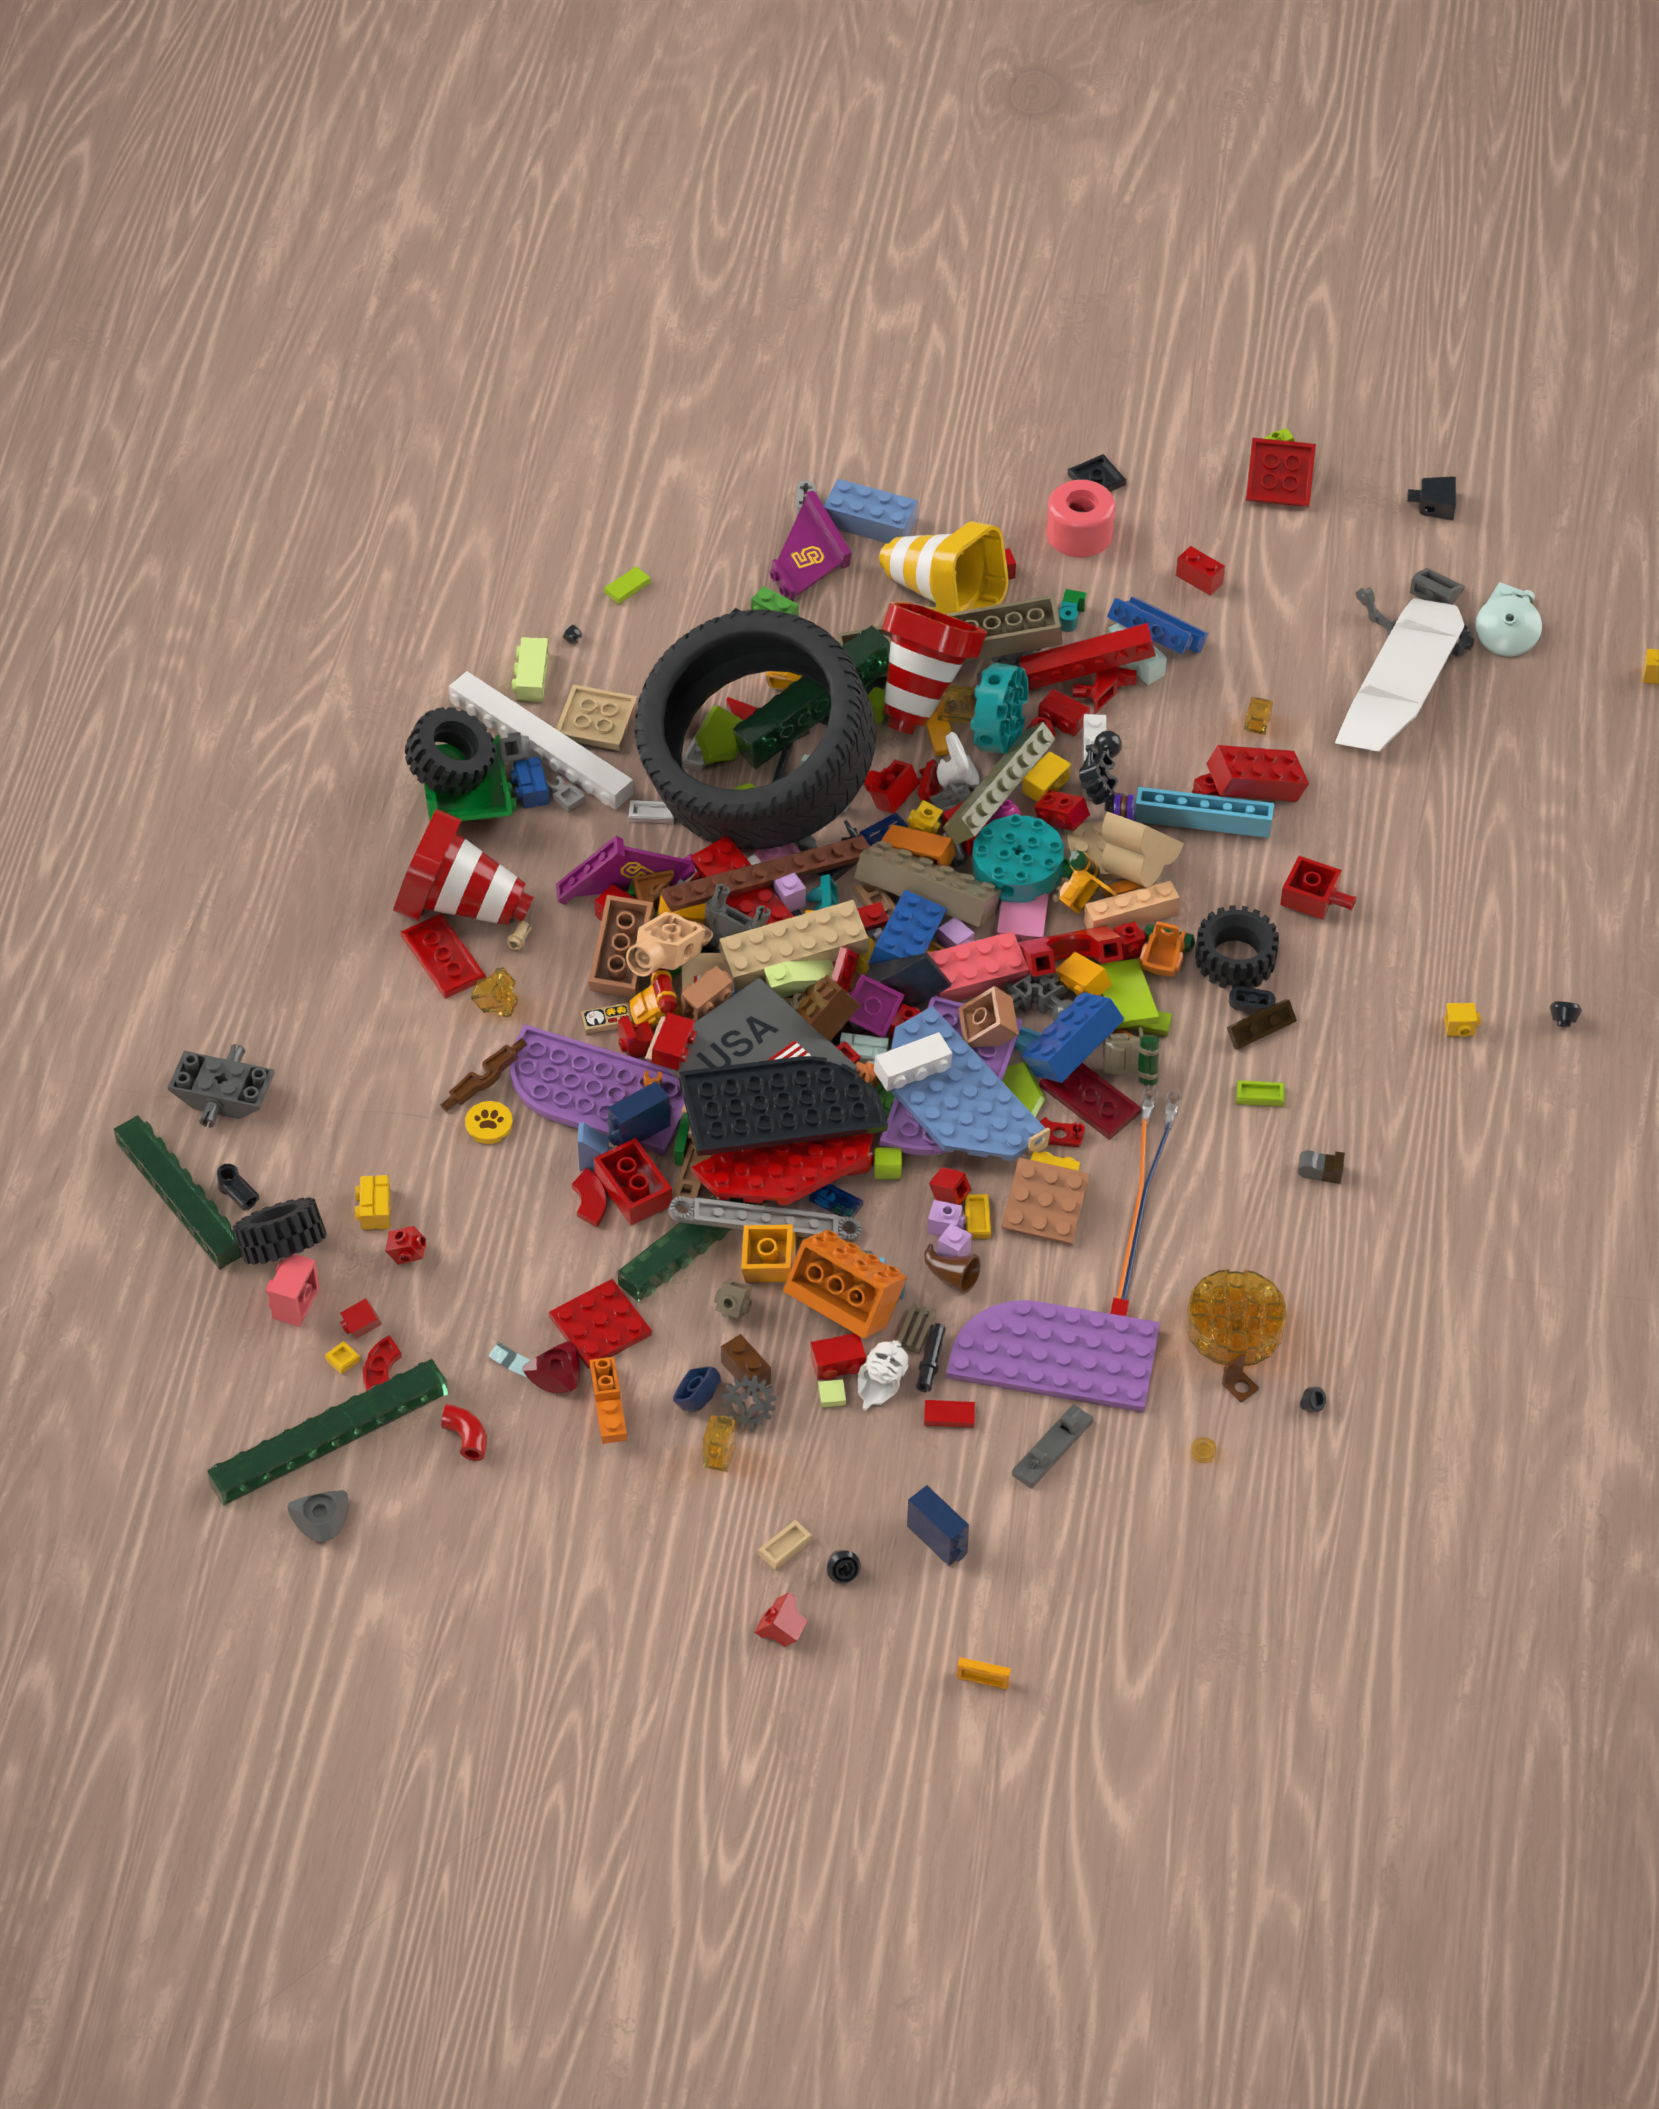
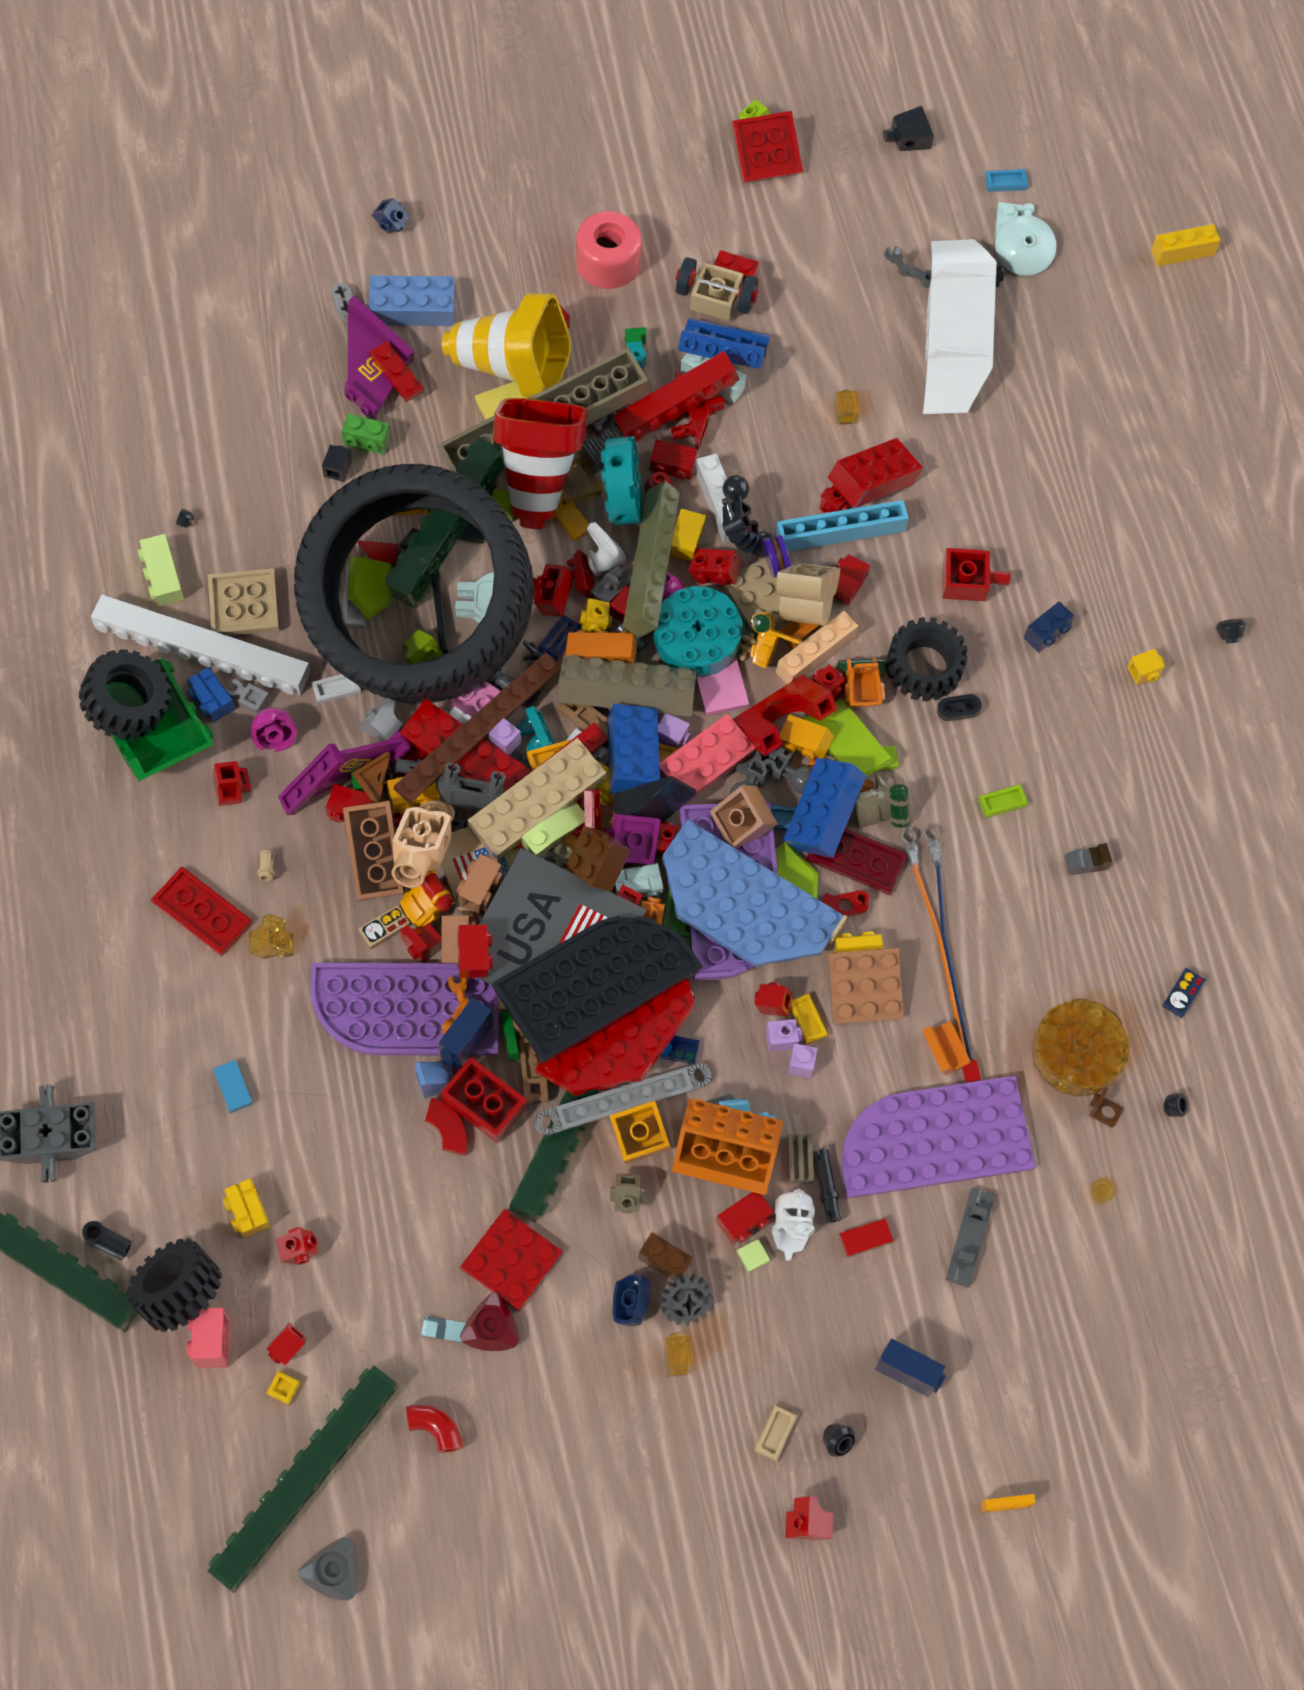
camera: 25 degrees left, 15 degrees up
(379, 1362) = (320, 1383): red tile -> none
(407, 1104) = (233, 1086): none -> dark azure tile
(459, 879) = (188, 831): red cone -> none
(473, 1082) = (289, 1043): reddish brown piece -> none
(488, 1122) = (319, 1079): yellow tile -> none
(515, 747) = (183, 665): dark grey brick -> none
(518, 855) = (230, 782): none -> red brick
(575, 826) = (273, 729): none -> dark pink cylinder
(608, 1400) = (555, 1345): orange slope -> none
(627, 585) = (214, 447): lime tile -> none
(679, 845) = (381, 721): none -> light grey brick
(827, 566) = (396, 371): none -> red plate
(881, 437) = (390, 215): none -> dark blue brick
(888, 1163) = (708, 995): lime piece -> none
(913, 1062) = (699, 891): white brick -> none
(955, 1271) = (812, 1088): reddish brown hat -> none
(1099, 471) = (600, 195): black tile -> none
(1102, 1279) = (946, 1047): none -> orange panel
(1171, 579) = (716, 289): none -> tan brick
(1194, 859) = (852, 576): none -> red brick
(1261, 1024) = (978, 730): dark brown plate -> none
(1367, 1309) = (1183, 993): none -> tile
(1375, 956) = (1049, 627): none -> dark blue brick
(1429, 586) = (945, 229): dark grey tile -> none
(1517, 566) = (1006, 180): none -> dark azure tile

